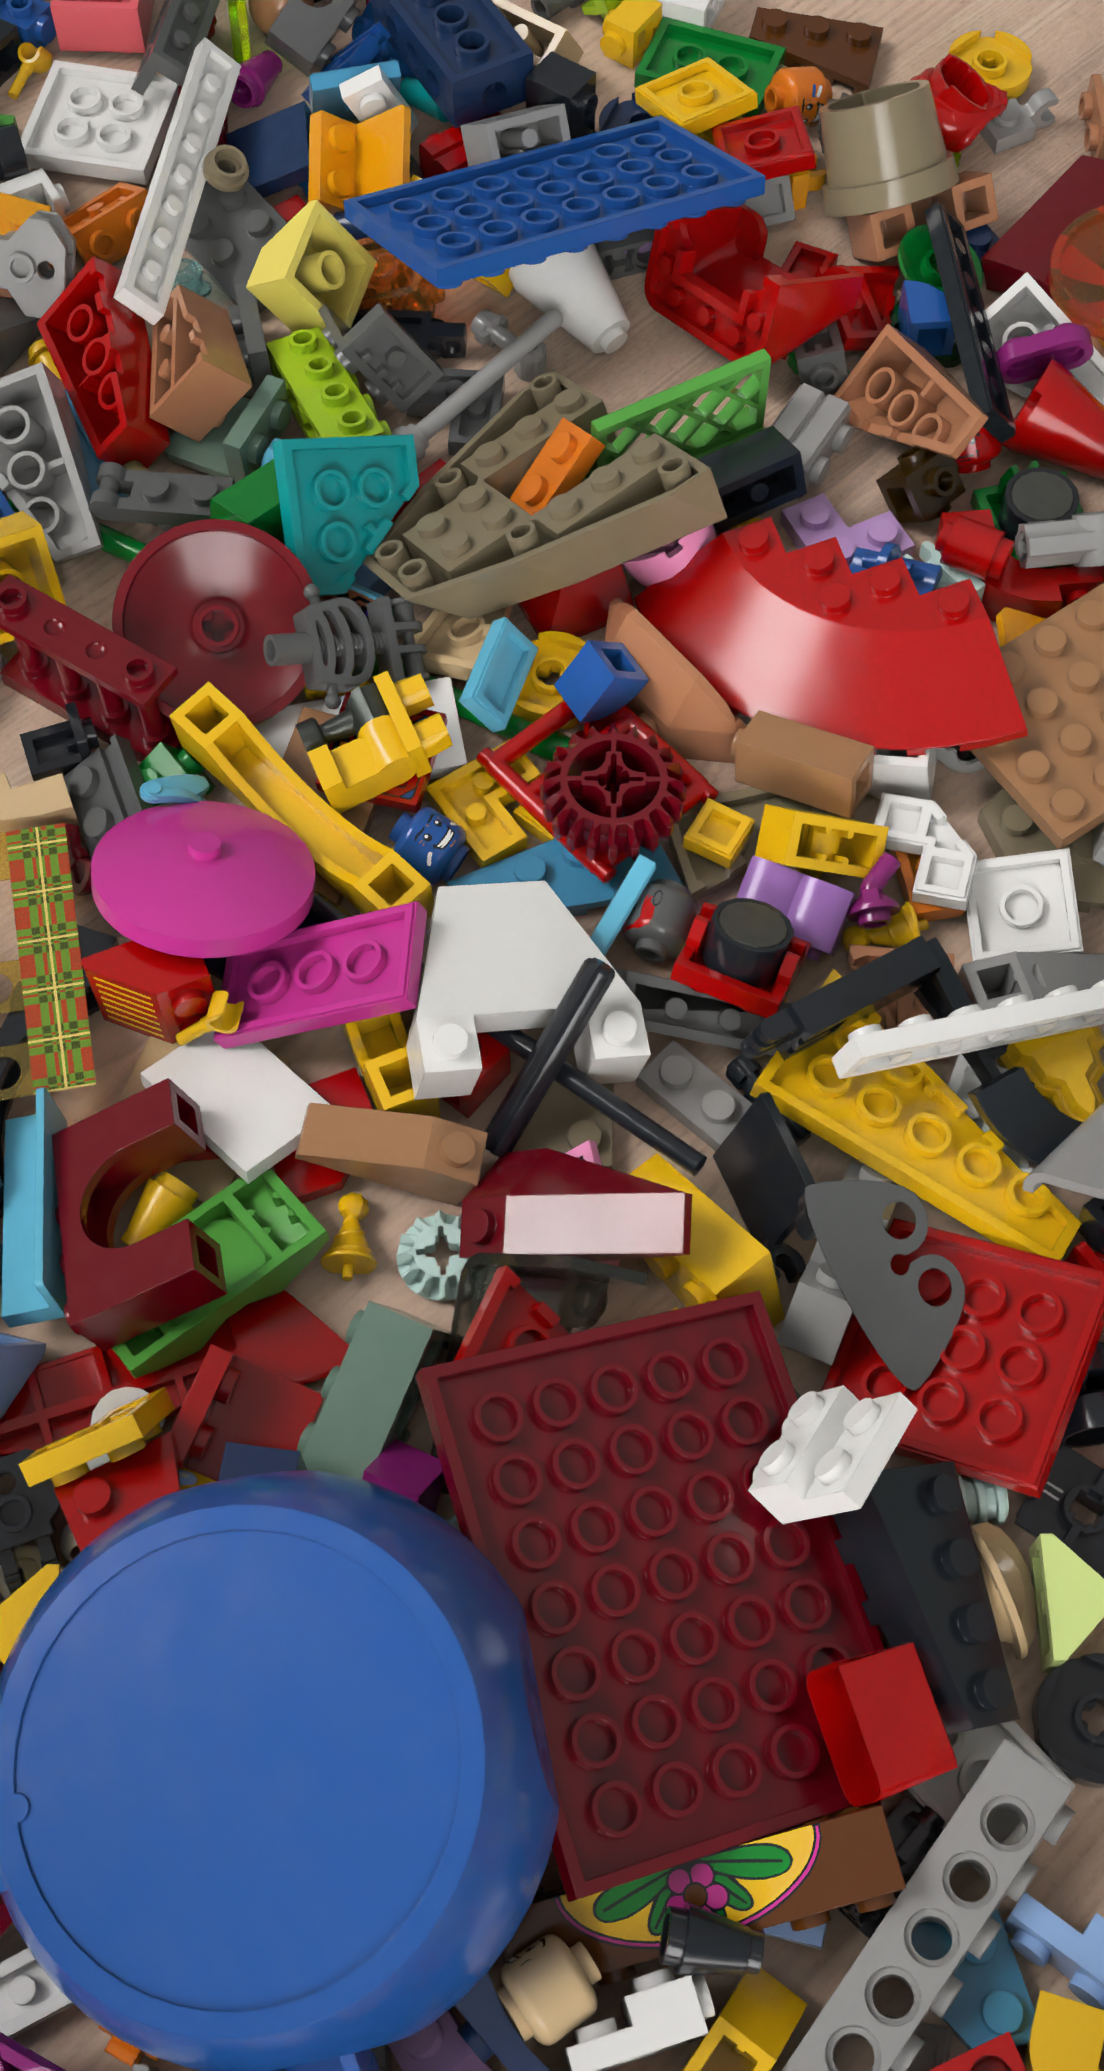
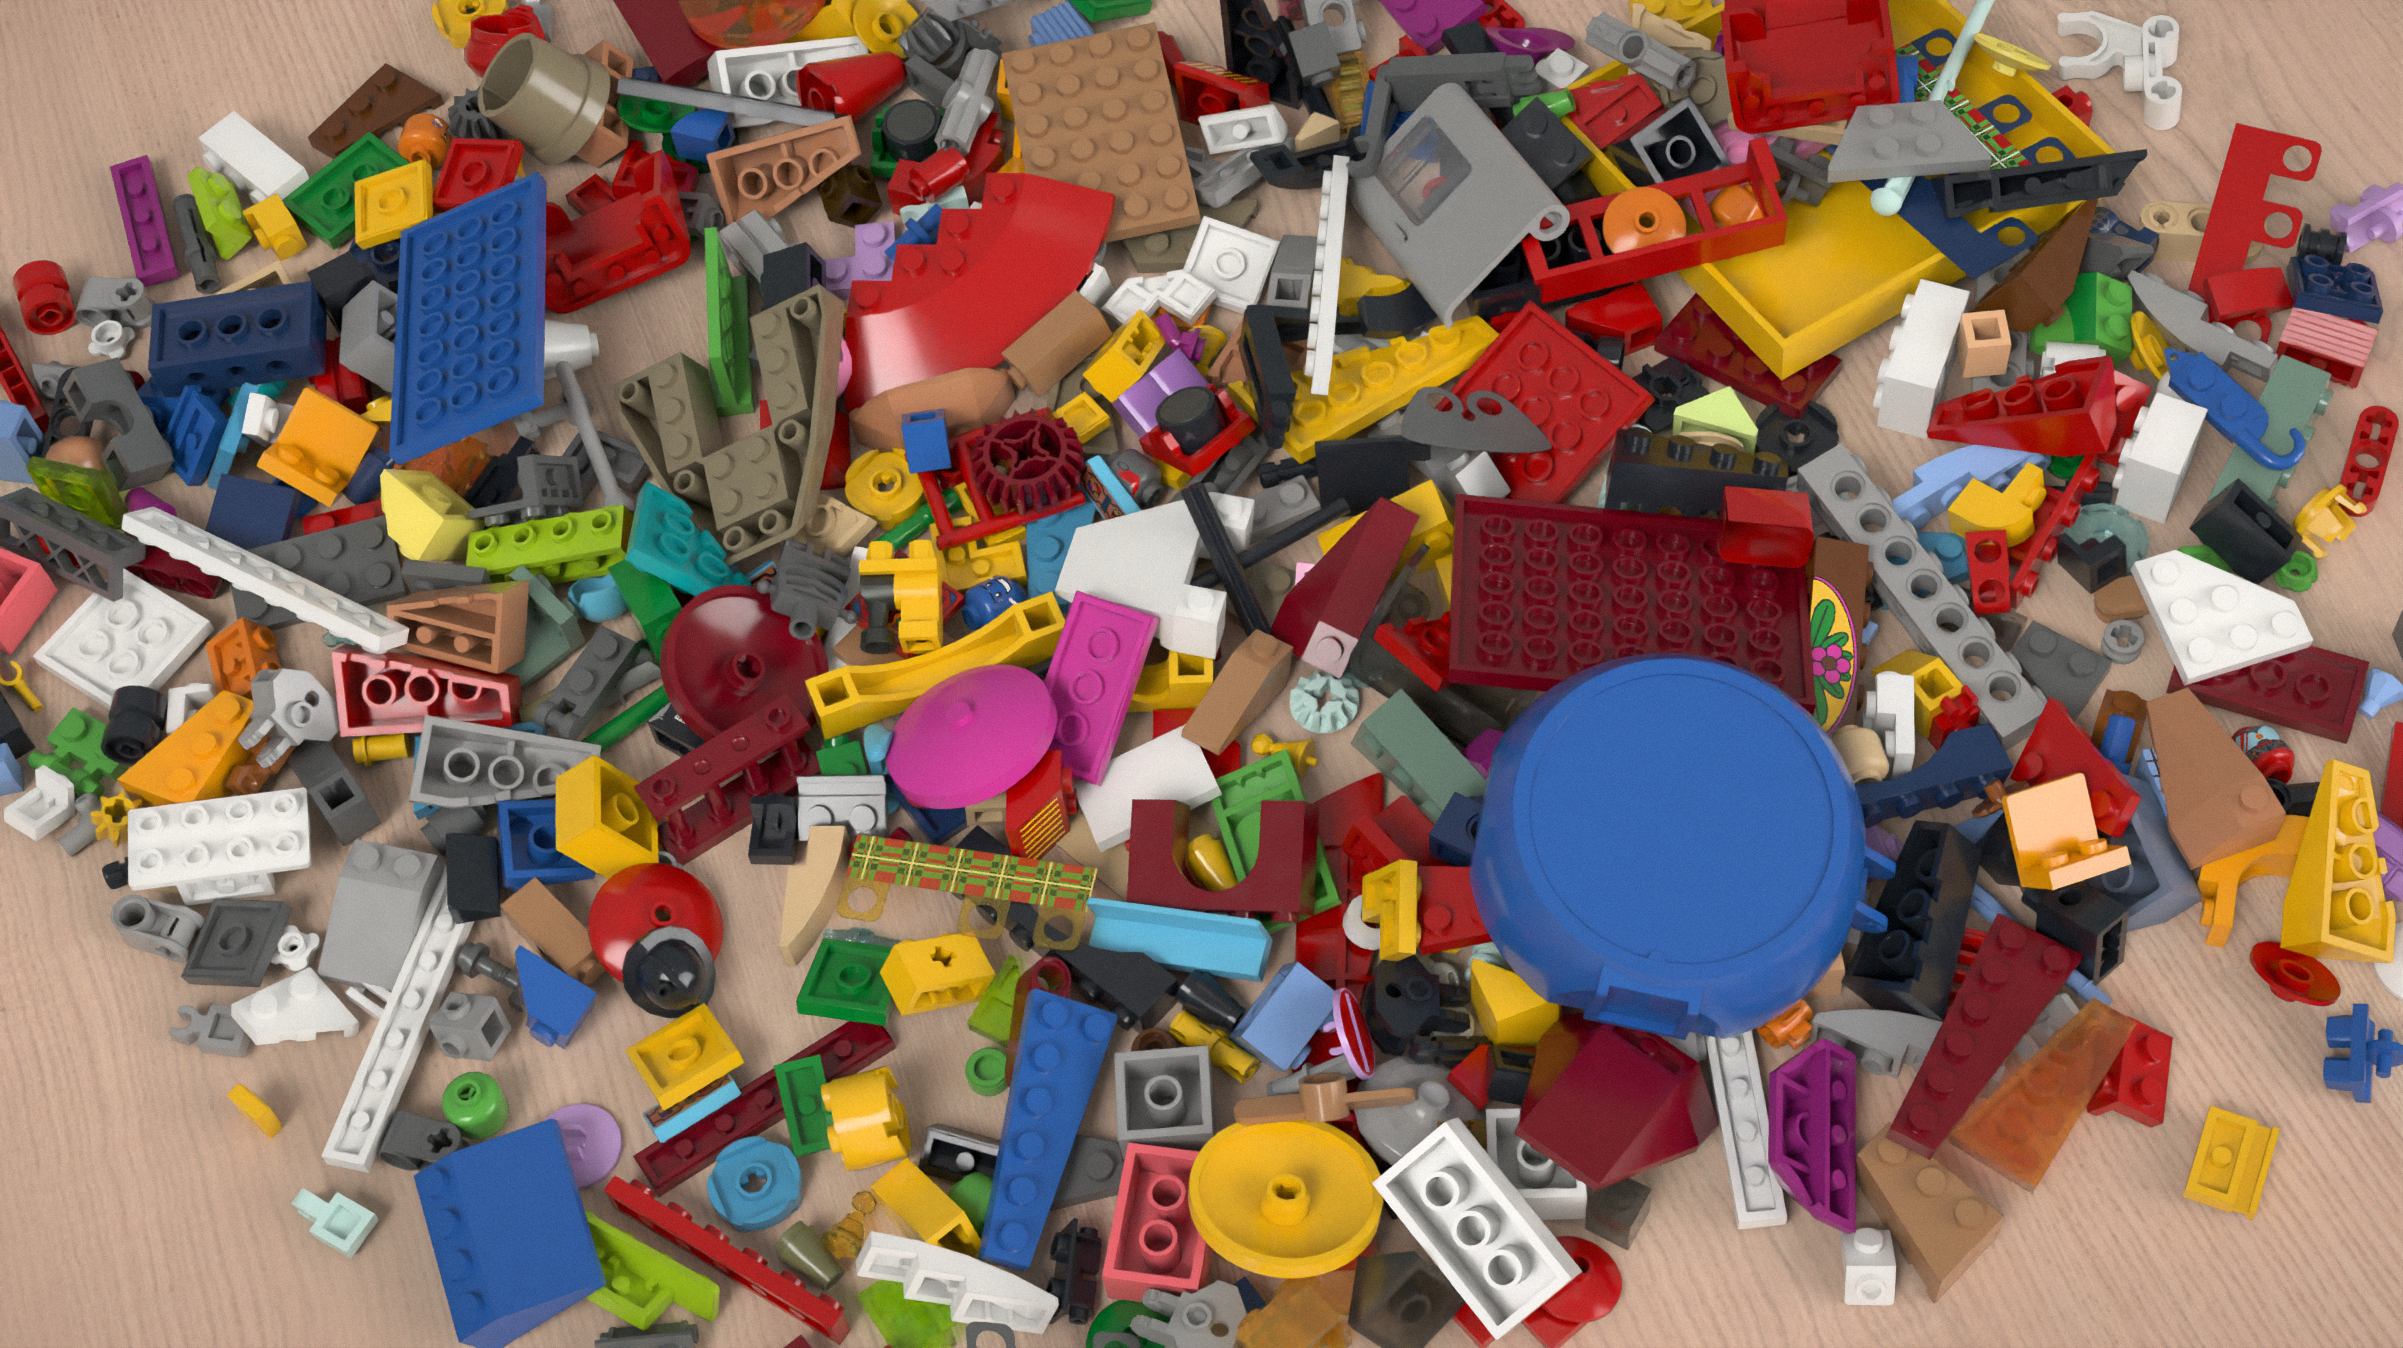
camera: 60 degrees left, 5 degrees down
(220, 1017) = (1087, 764): yellow hand -> none
(230, 159) = (272, 543): dark tan plate -> none
(498, 675) = (879, 507): medium azure tile -> none
(557, 467) = (725, 403): orange bracket -> none
(708, 1943) = (1860, 661): black cone -> none
(829, 1453) = (1592, 479): white plate -> none
(1027, 357) = (790, 58): magenta plate -> none

